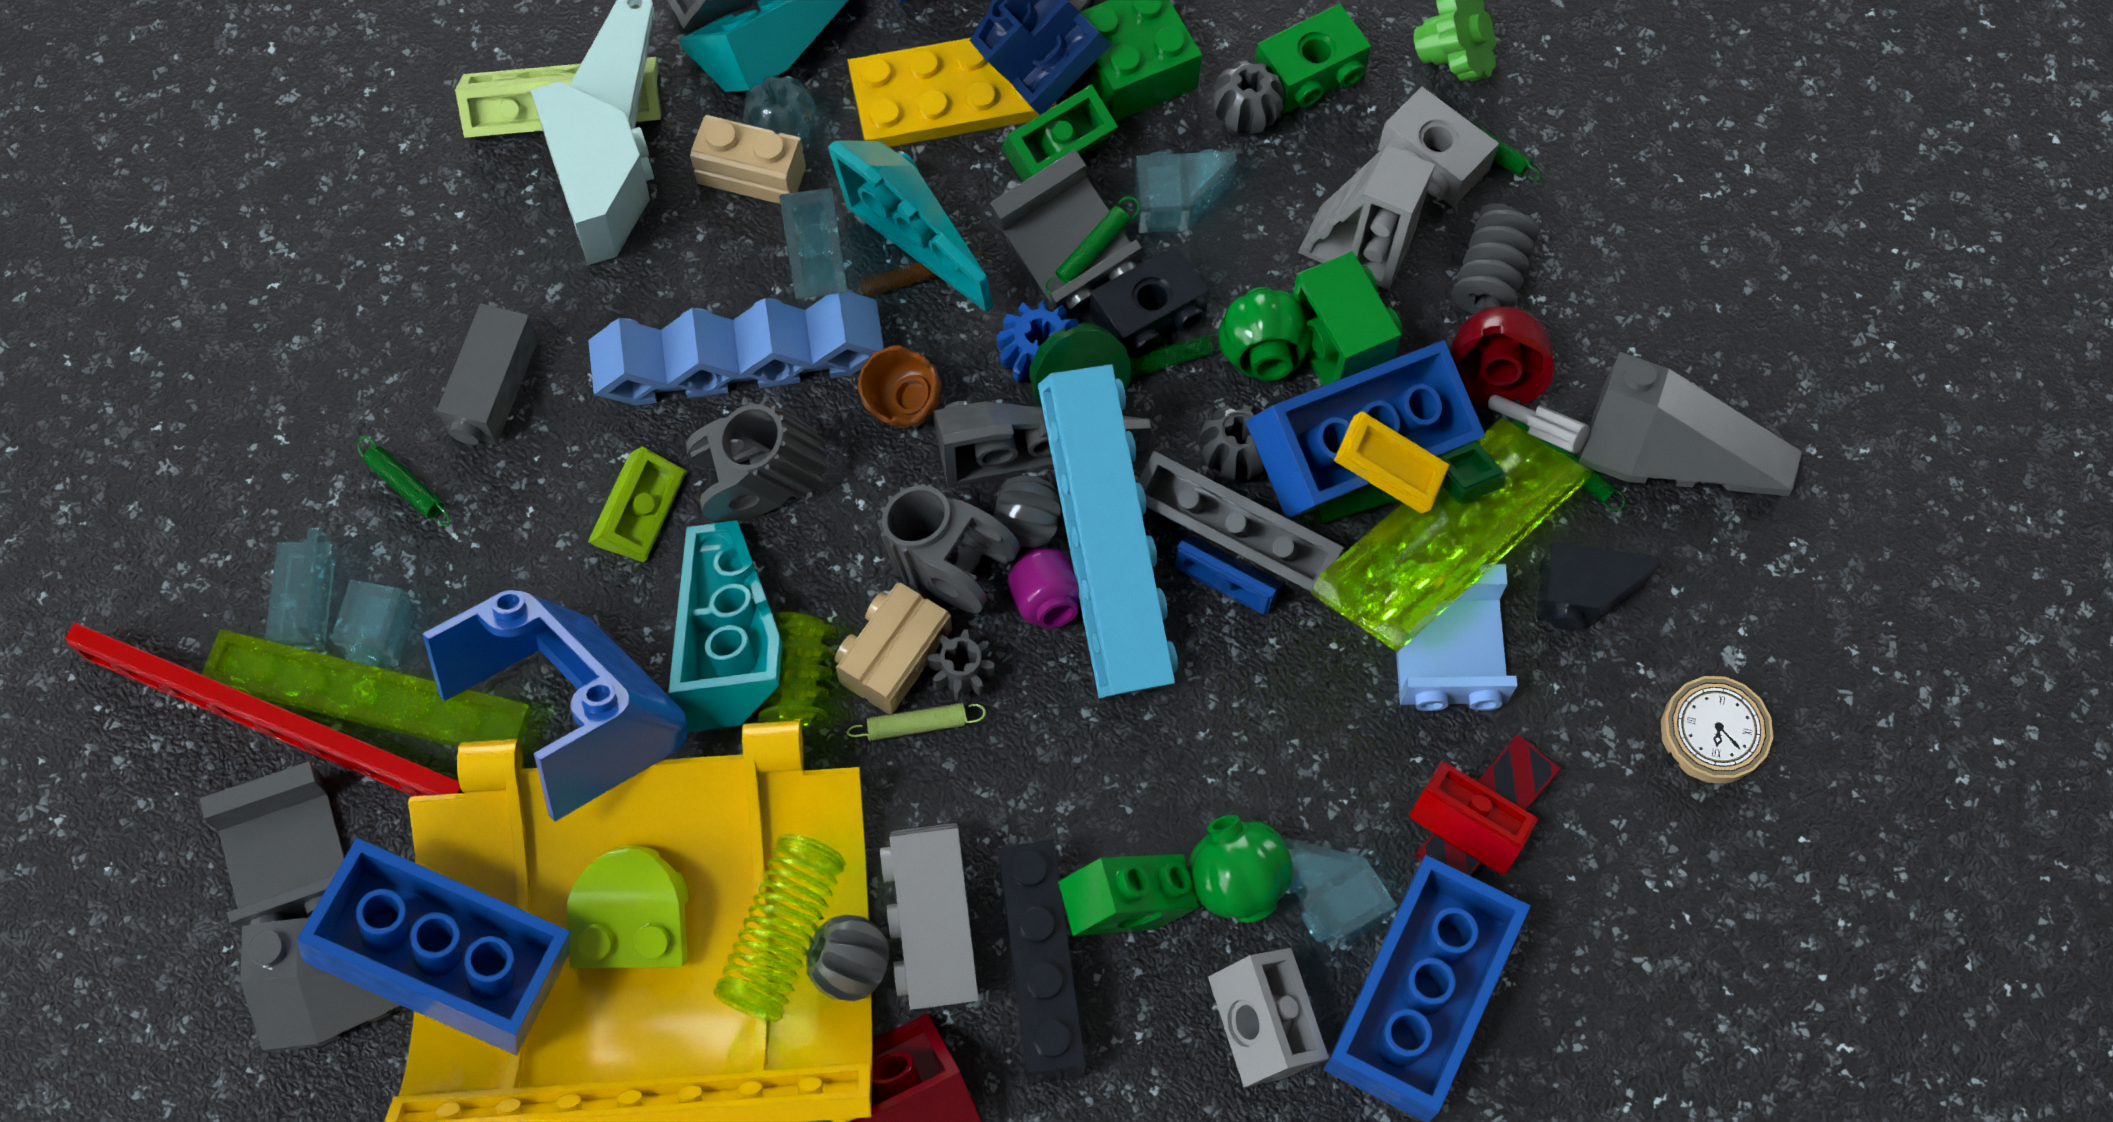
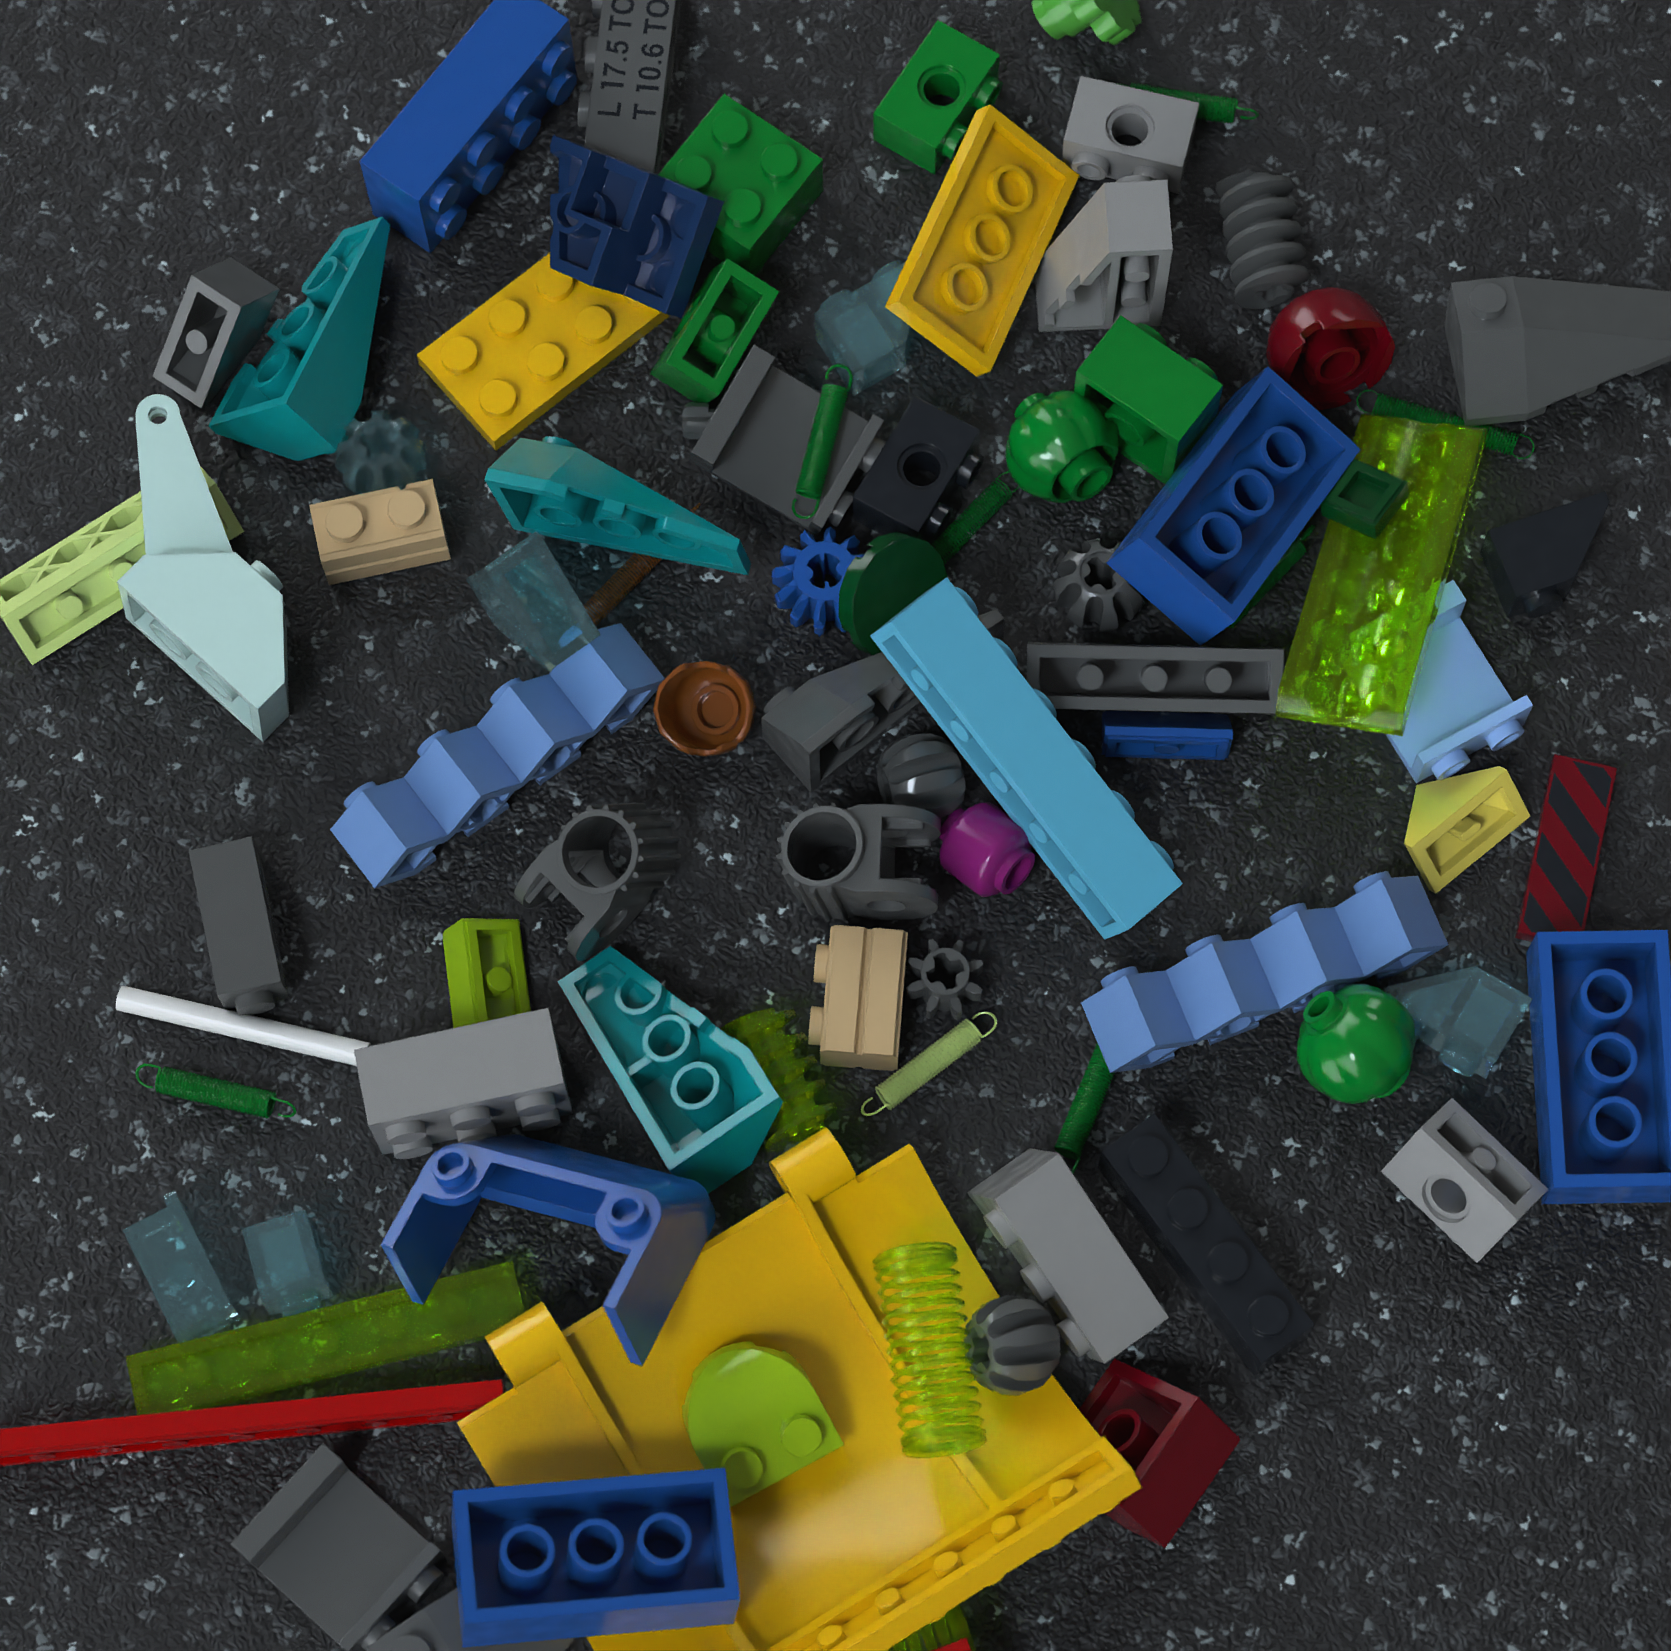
camera: 25 degrees left, 5 degrees up
(451, 447) = (238, 1026): none -> white bar
(567, 557) = (463, 1083): none -> light grey brick
(1018, 809) = (1084, 1108): none -> green piece
(1128, 894) = (1260, 1129): green brick -> none
(1173, 779) = (1237, 983): none -> medium blue brick
(1248, 97) = (893, 179): dark grey piece -> none
(1285, 164) = (982, 241): none -> yellow plate
(1391, 462) = (1287, 532): yellow tile -> none
(1412, 746) = (1461, 821): none -> light yellow slope
(1473, 818) = (1557, 866): red slope -> none
(1545, 423) = (1410, 400): light grey axle -> none

